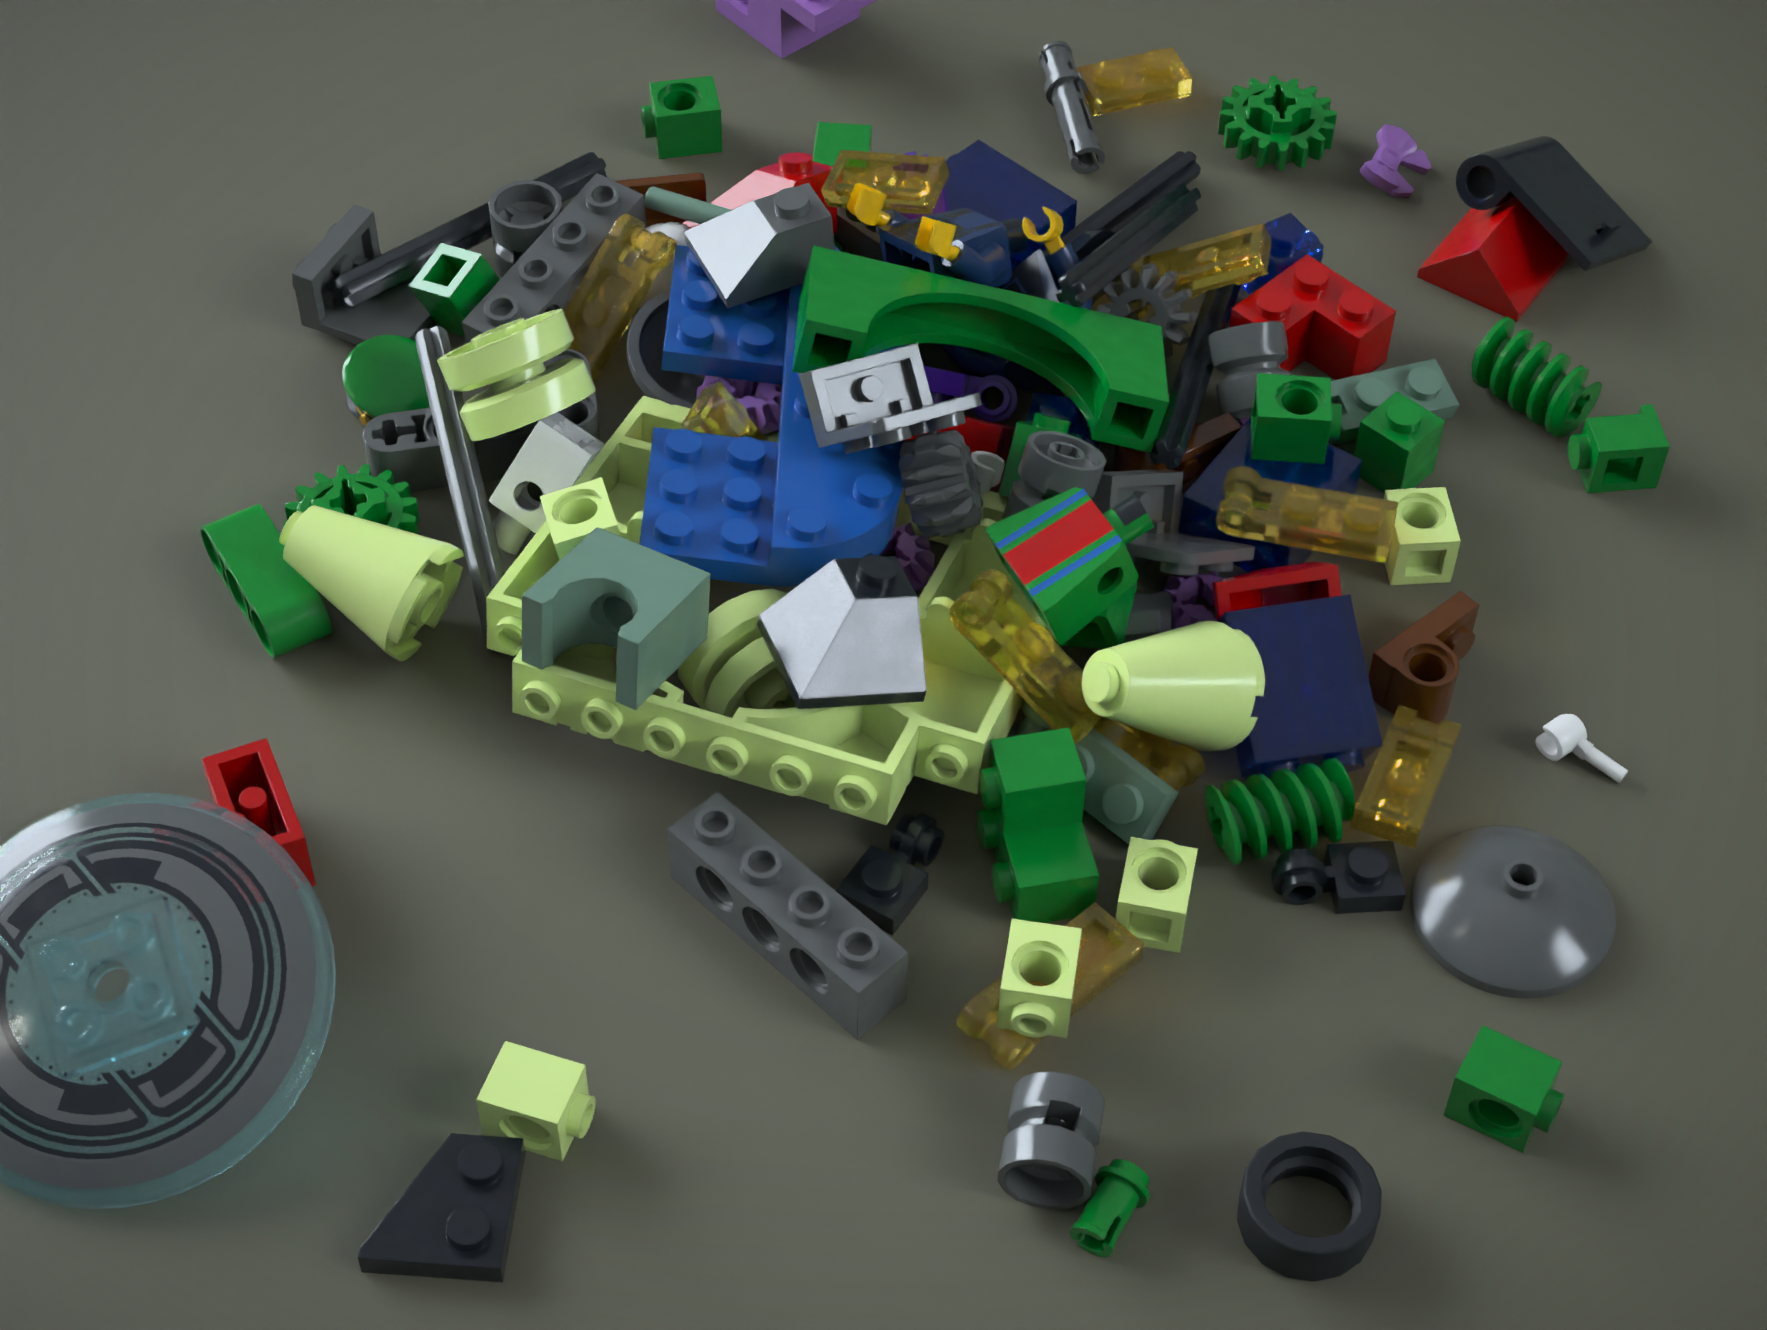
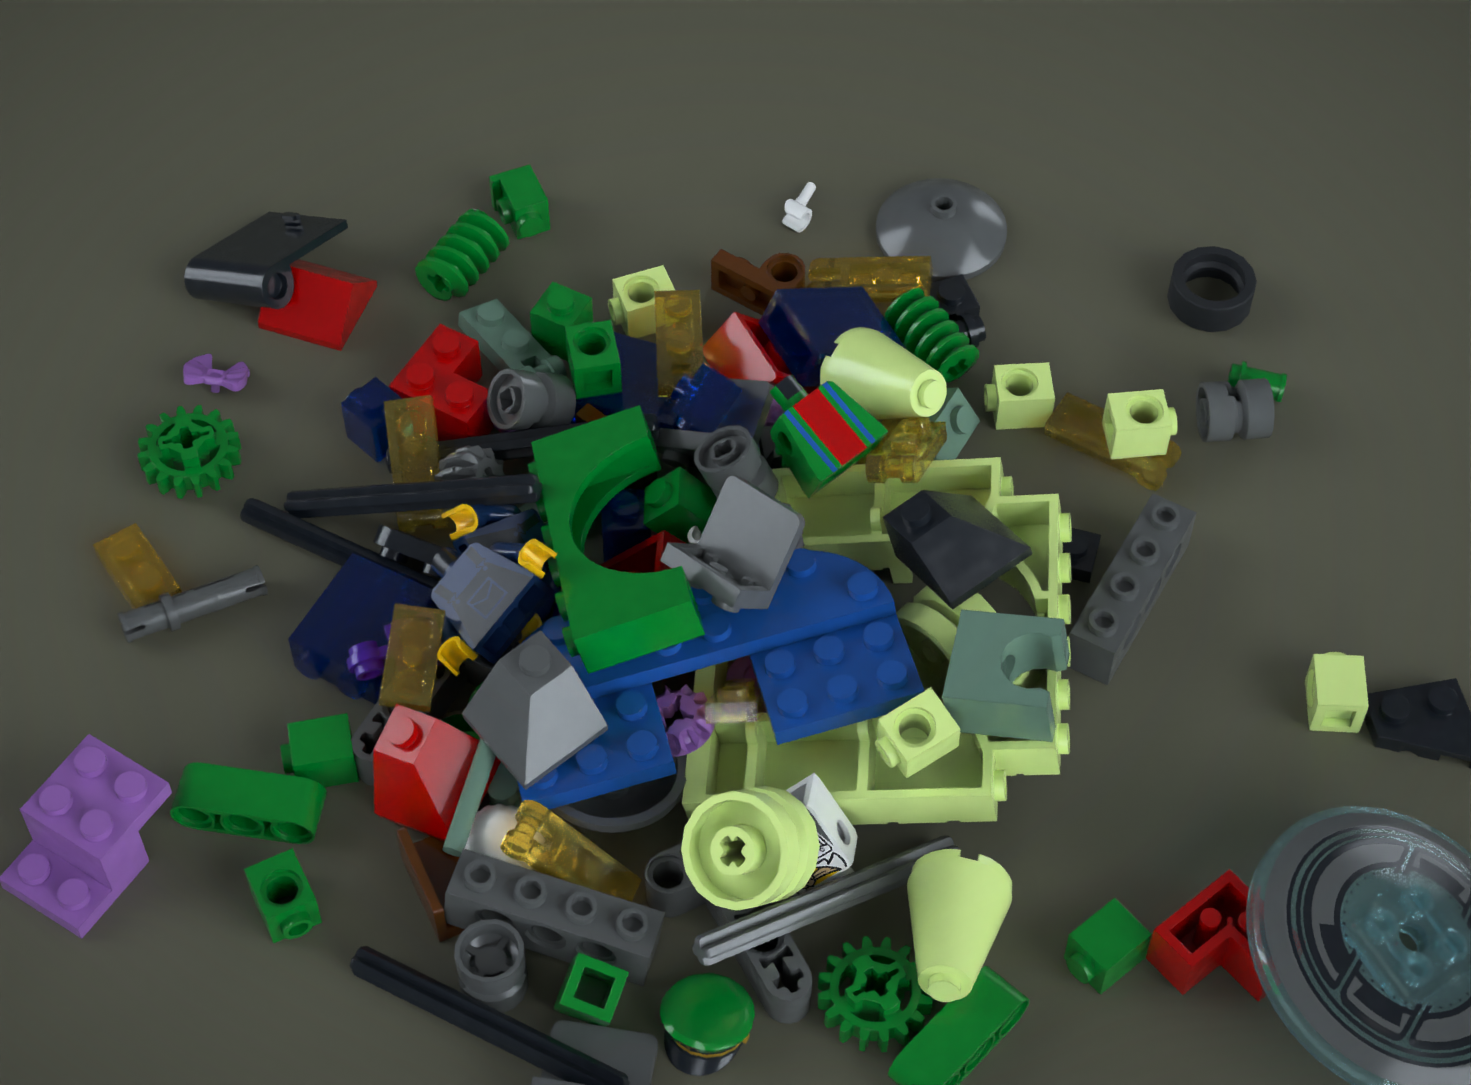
camera: 105 degrees left, 5 degrees up
(302, 737) = (1106, 946): none -> green brick
(813, 92) = (248, 803): none -> green beam
(1036, 826) = (1025, 446): green brick -> none
(1188, 498) = (704, 399): none -> clear blue brick
(1505, 1089) = (1090, 210): green brick -> none

